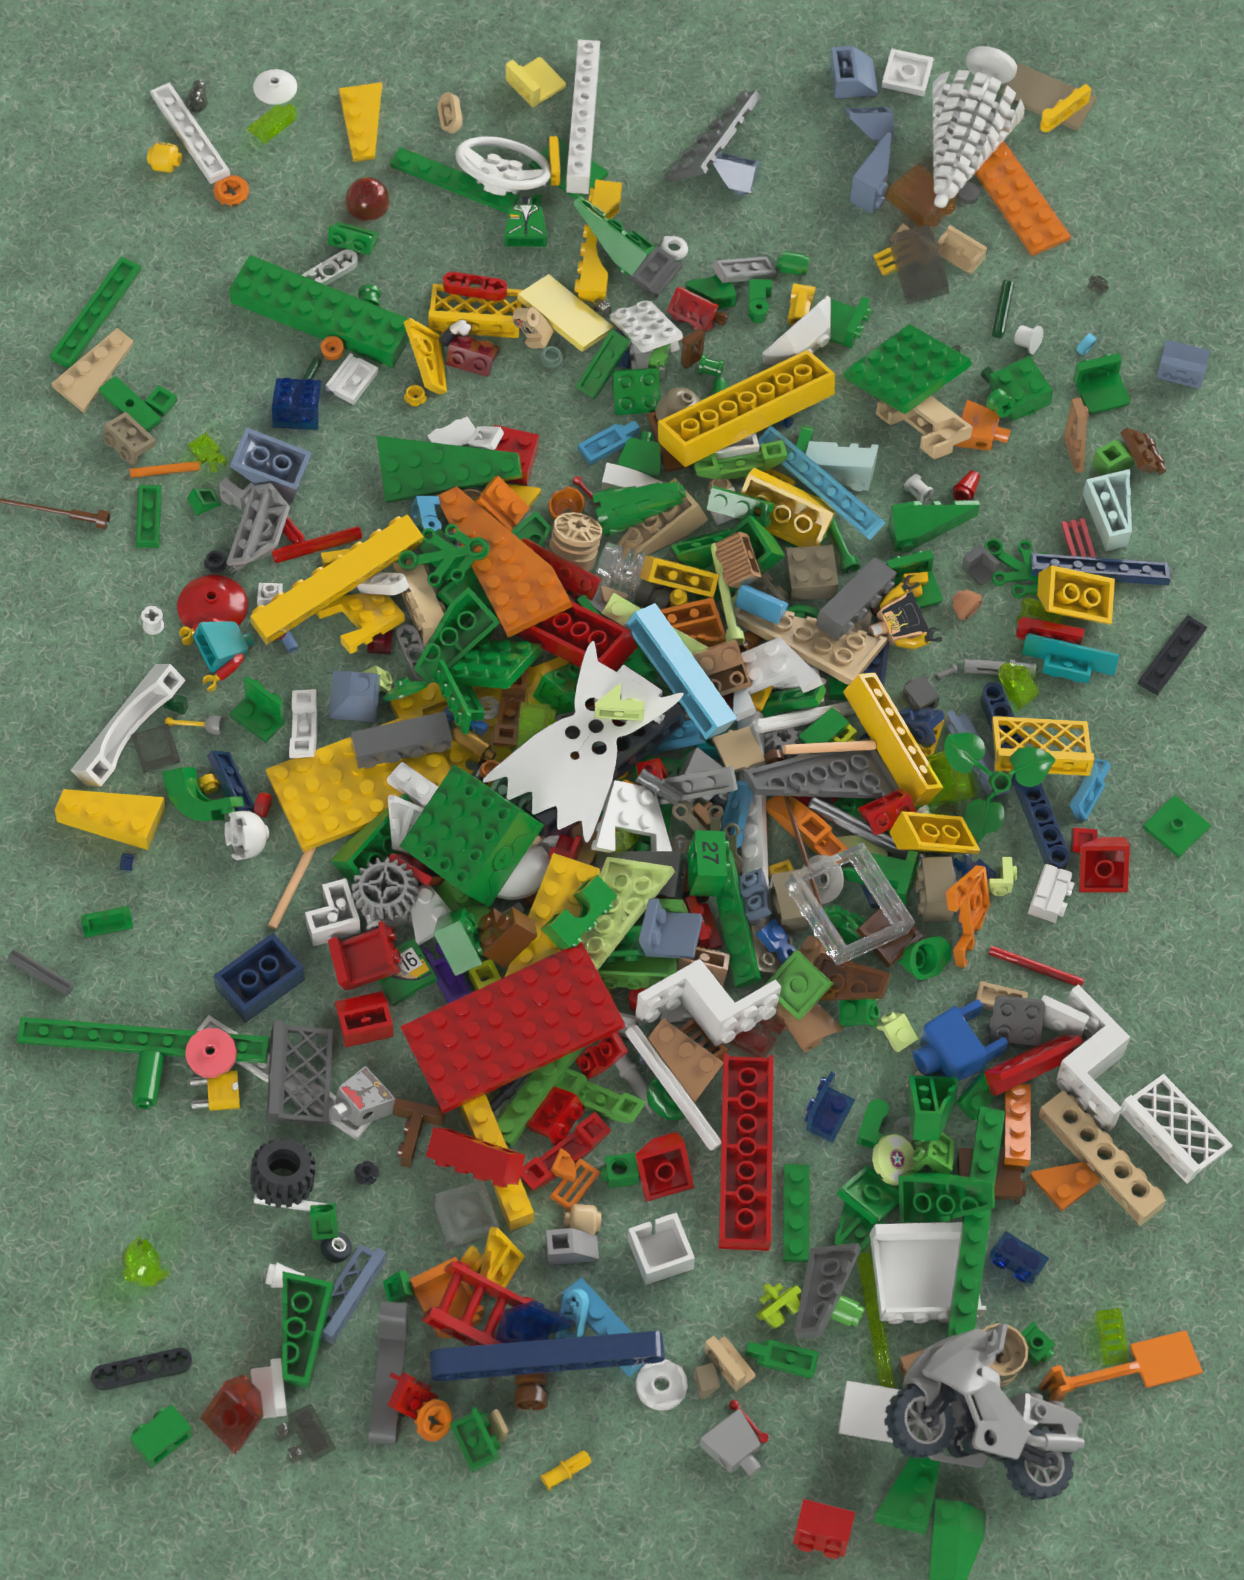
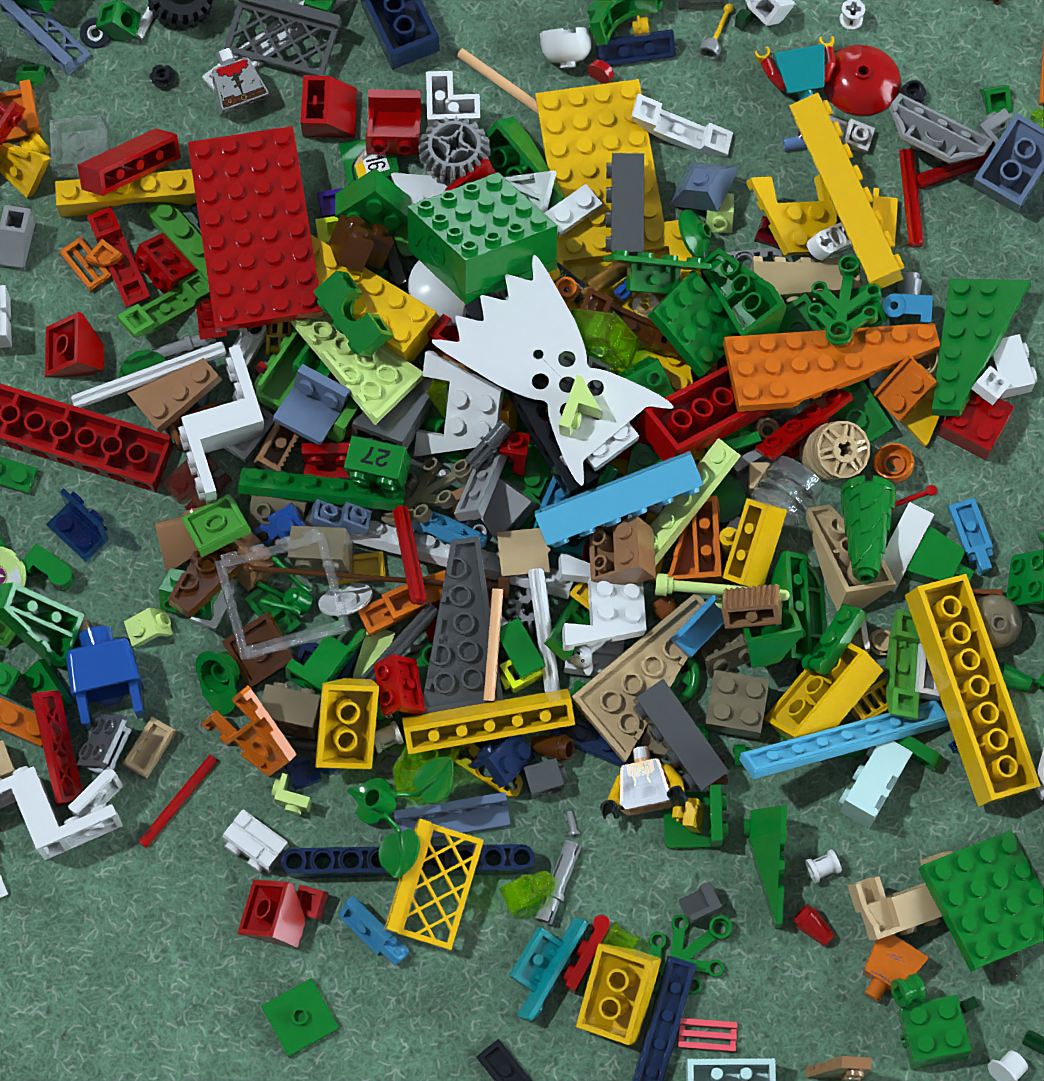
camera: 110 degrees right, 10 degrees up
(148, 516) = (989, 41): green tile -> none
(259, 710) = (711, 90): green bracket -> none
(417, 1114) = (192, 125): reddish brown bracket -> none
(583, 1218) = (41, 257): tan head -> none
(624, 1161) = (82, 294): green brick -> none
(773, 828) = (409, 555): none -> red axle
(894, 690) = (553, 746): none -> reddish brown cone
(966, 603) = (651, 869): nougat cone -> none

